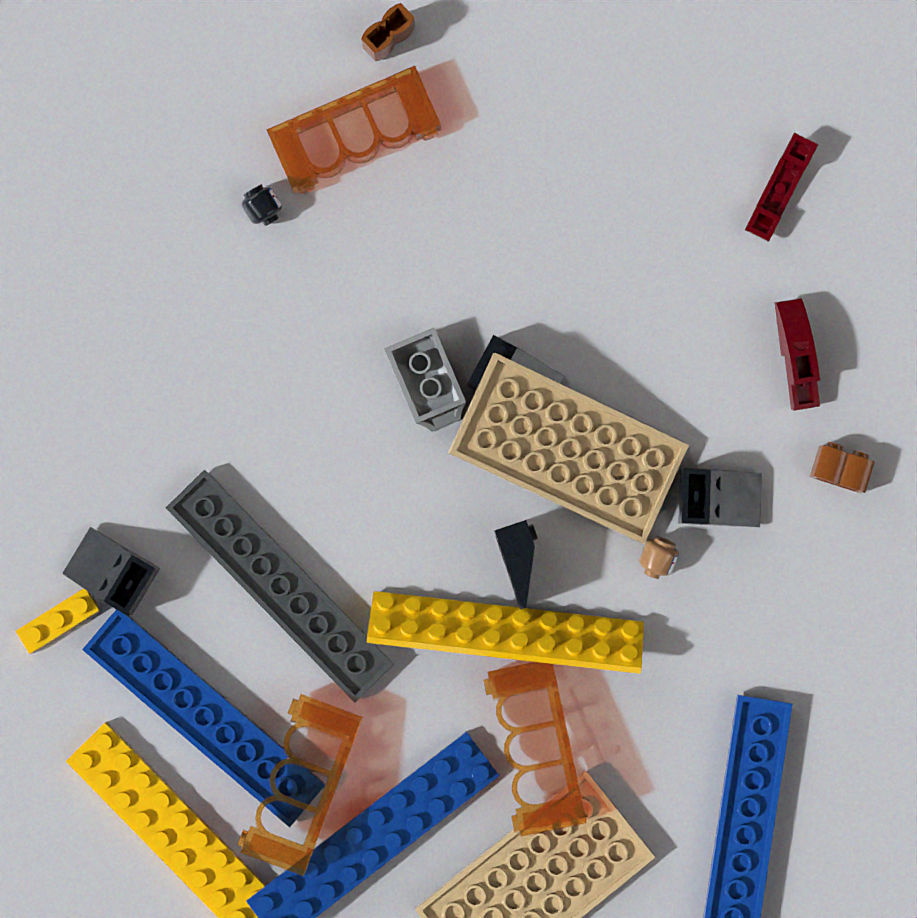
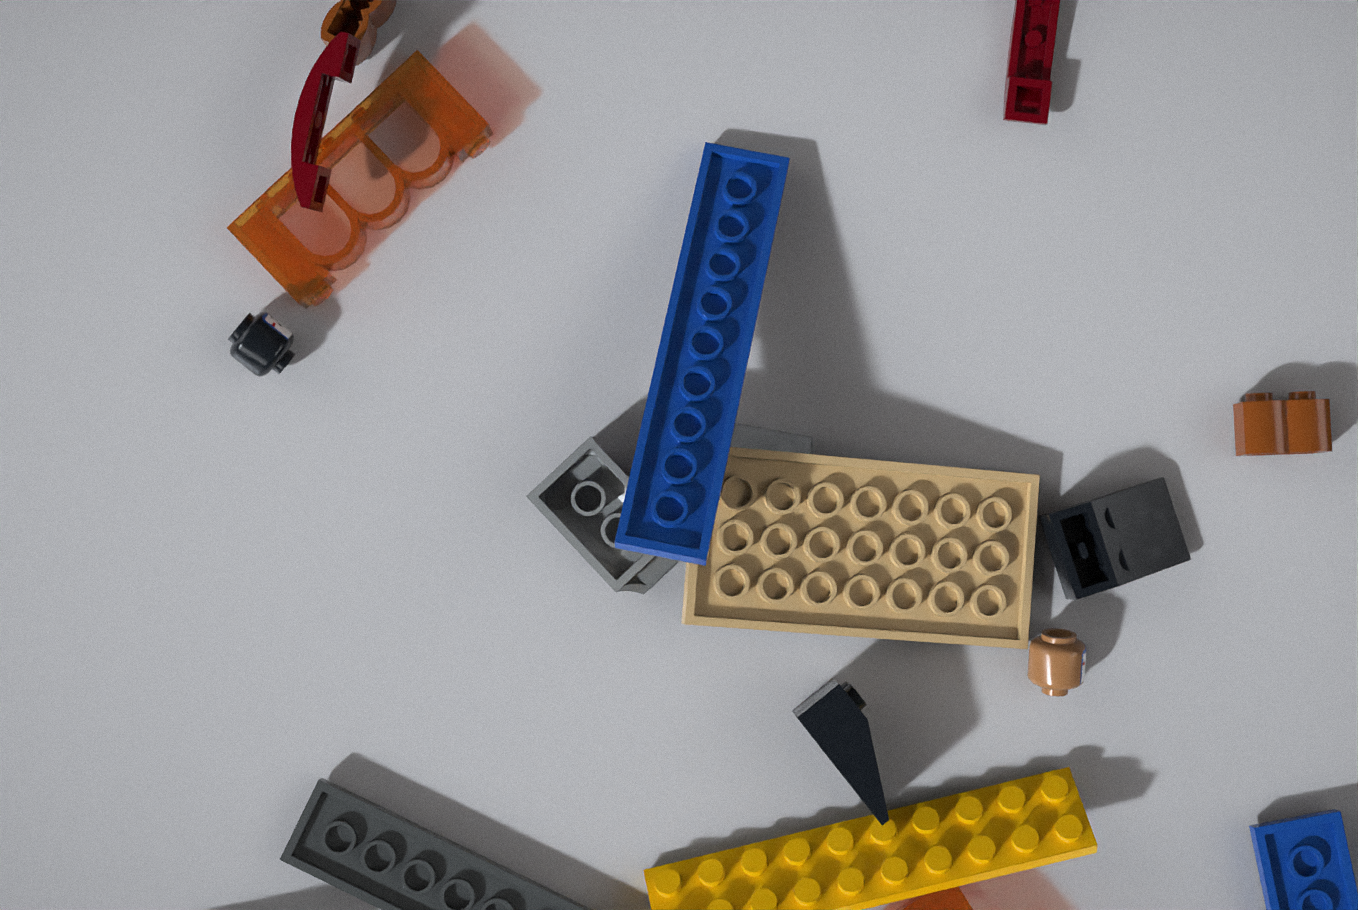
camera: 20 degrees left, 0 degrees up
(364, 57) = (333, 64): none -> dark red slope
(517, 301) = (703, 356): none -> blue plate
(799, 353) = (1156, 275): dark red slope -> none

